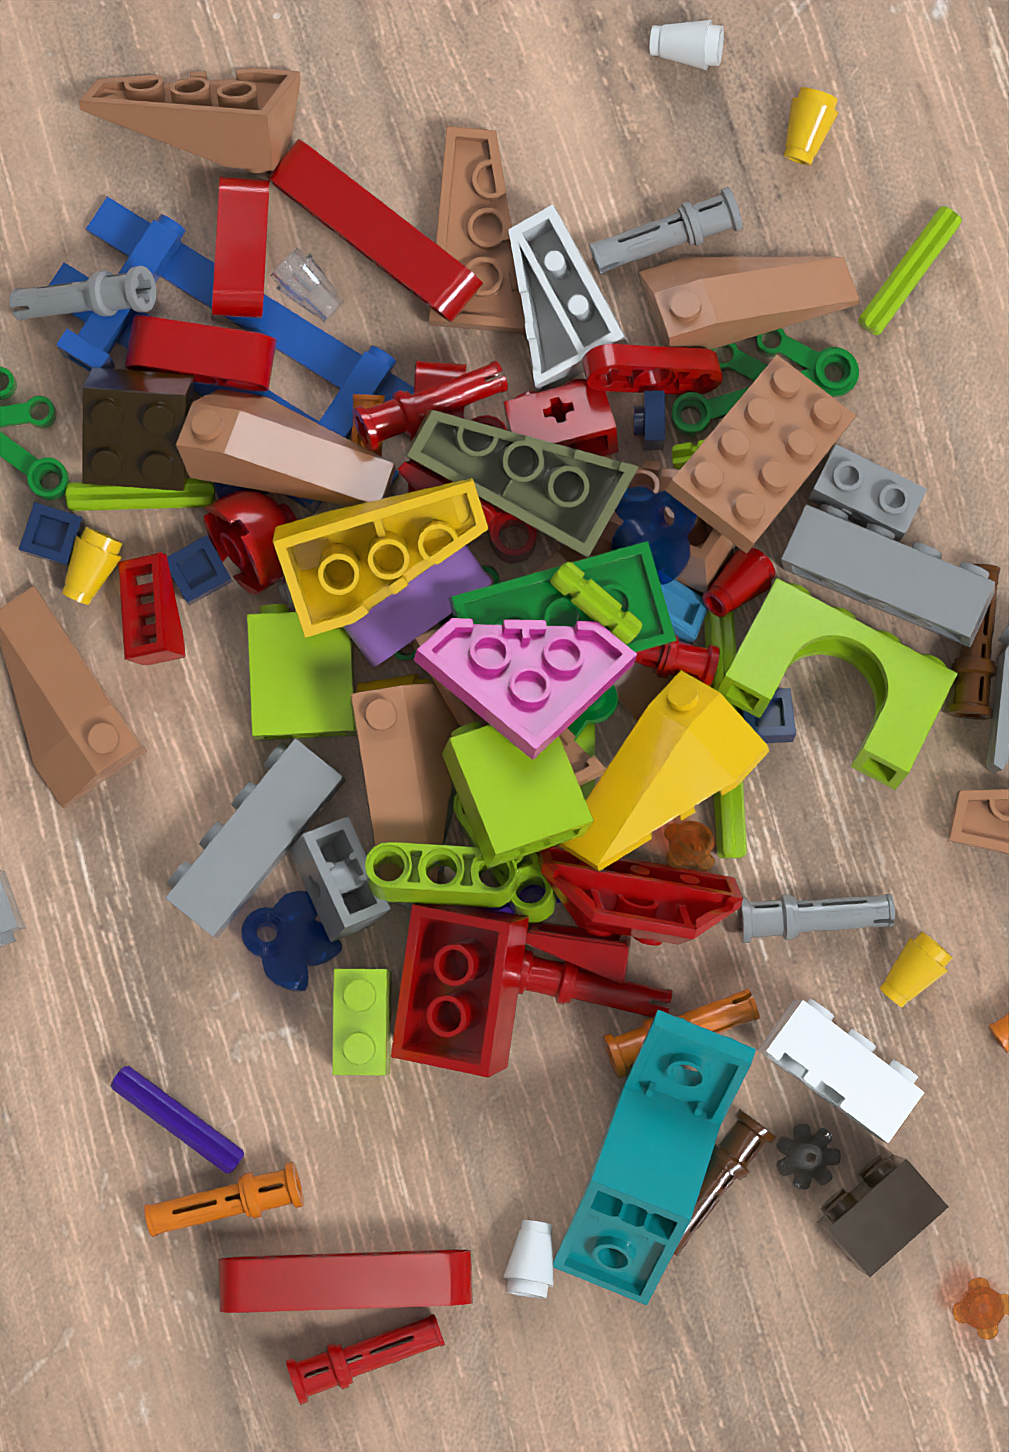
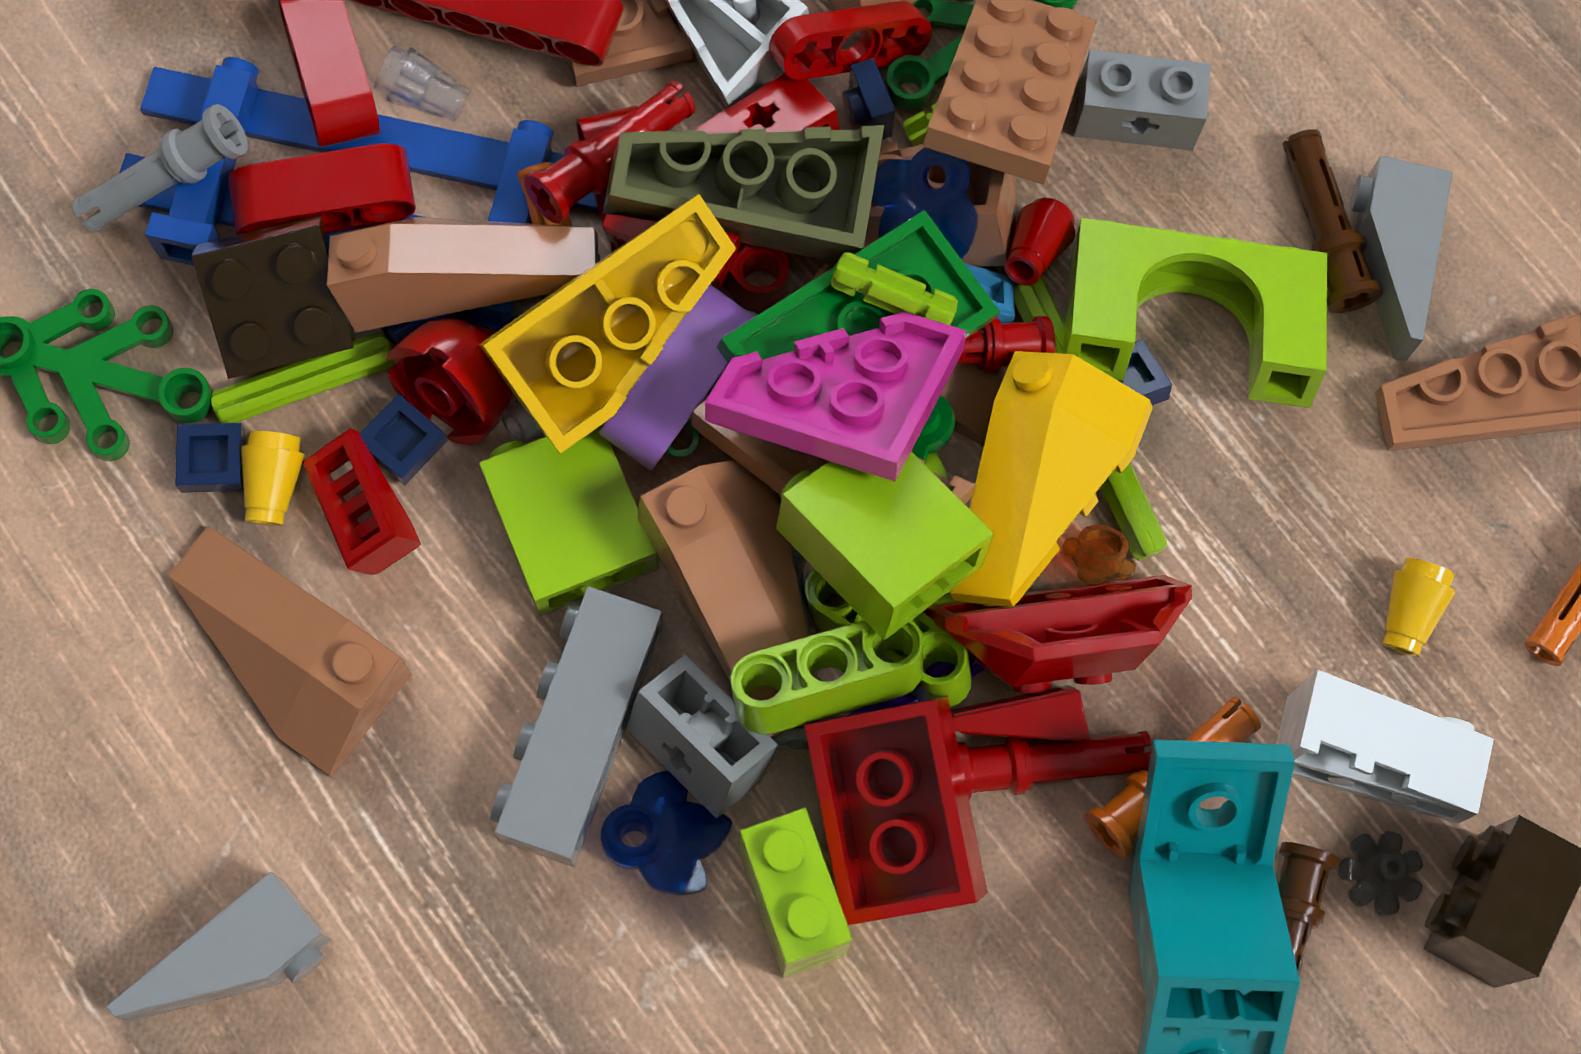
camera: 25 degrees left, 10 degrees down
(790, 917) = (1250, 596): light grey pin -> none
(889, 574) = (1205, 173): light grey brick -> none

